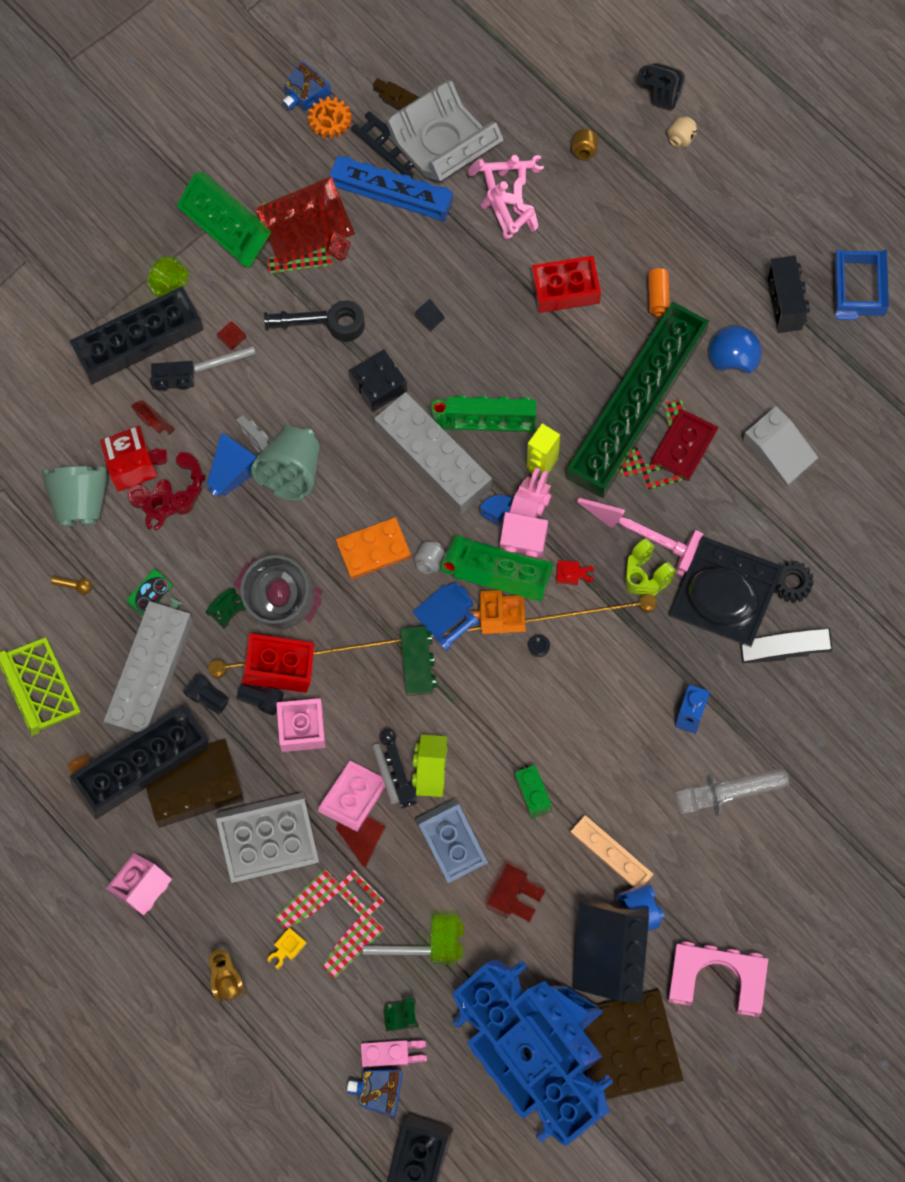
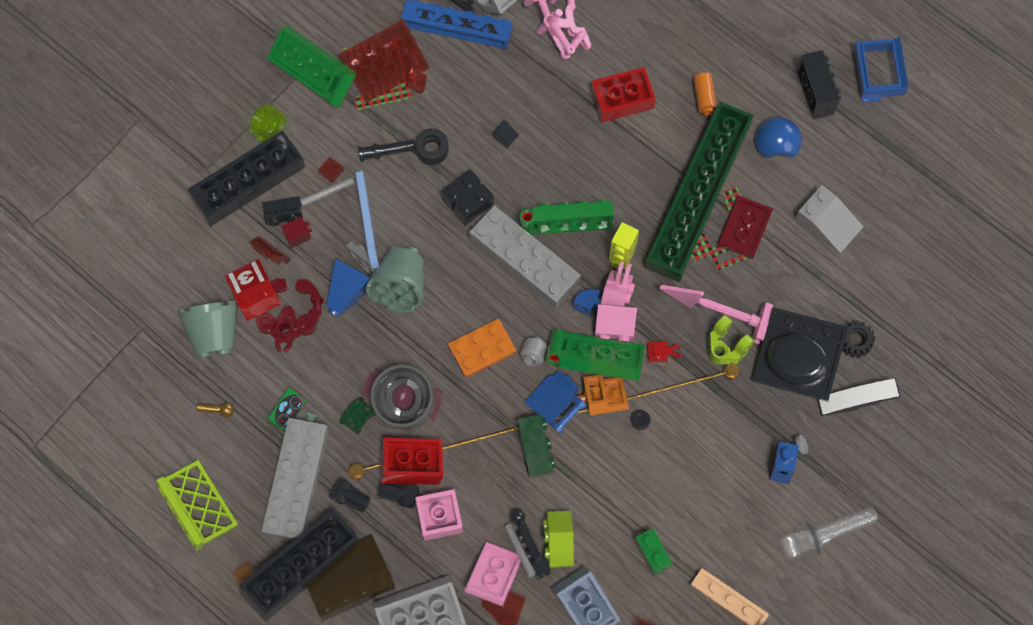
camera: 10 degrees left, 0 degrees up
(185, 399) = (297, 232): none -> dark red brick
(262, 393) = (367, 221): none -> light blue tile
(715, 691) = (801, 442): none -> light grey piece

